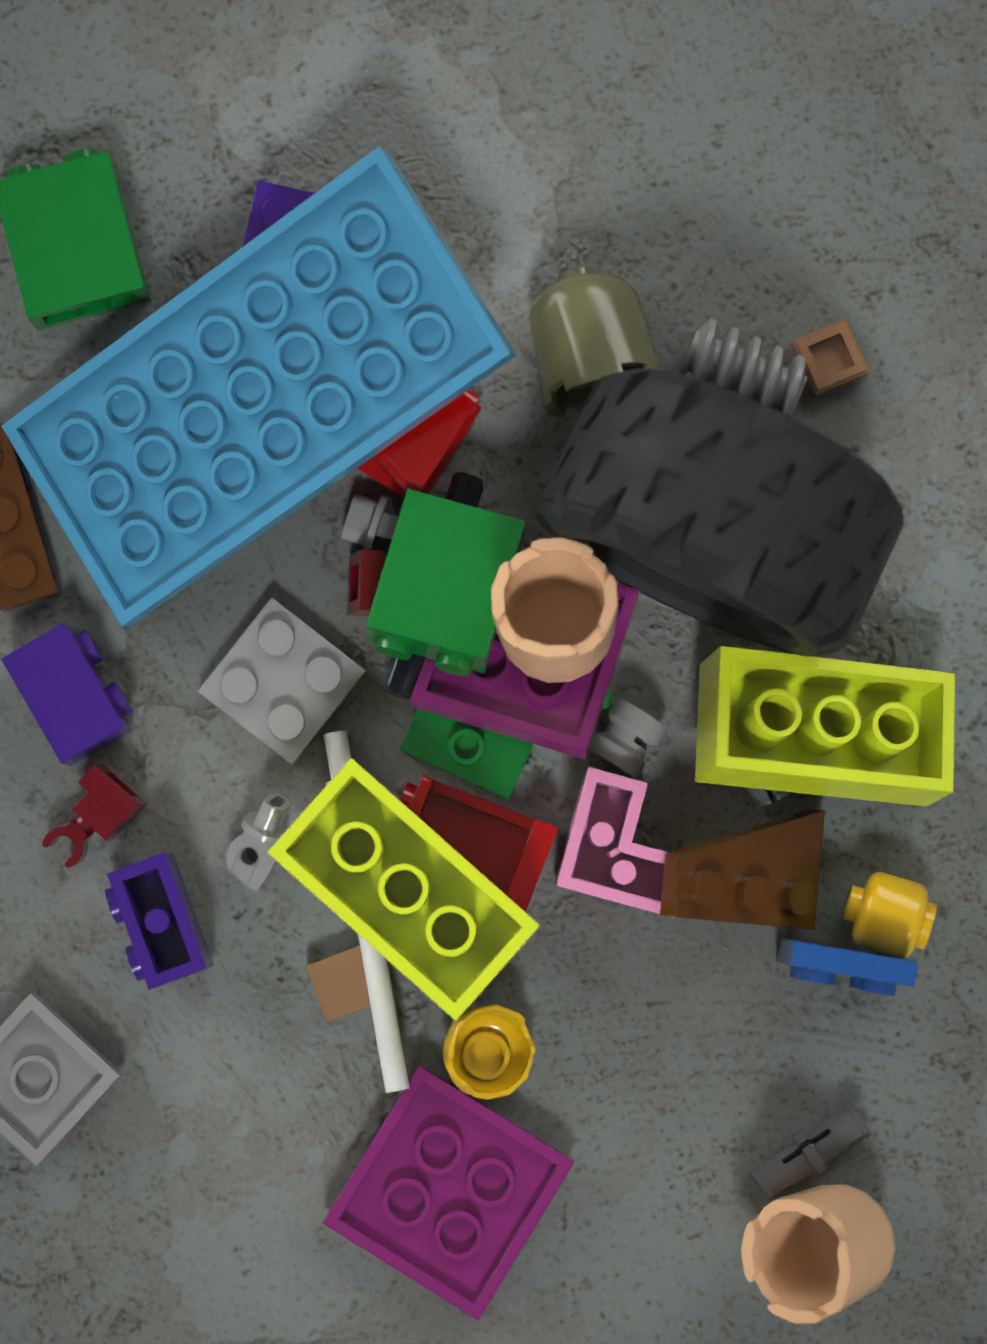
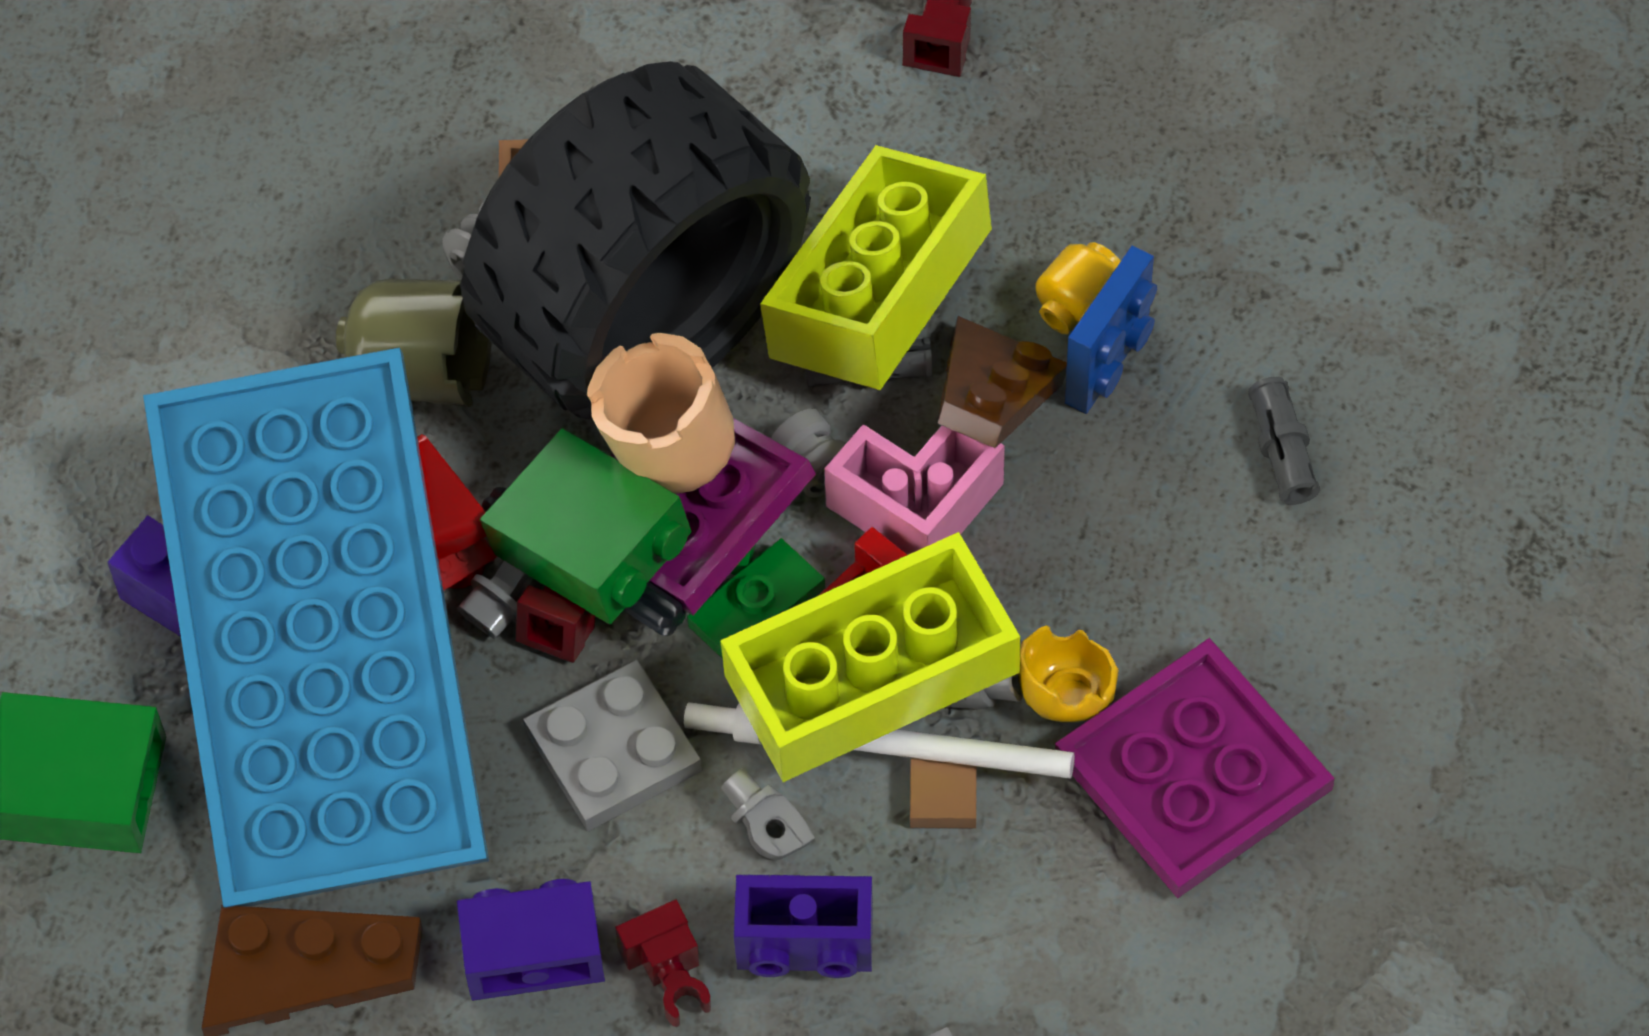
camera: 60 degrees left, 25 degrees down
(818, 1251) = (1376, 439): light nougat cylinder -> none

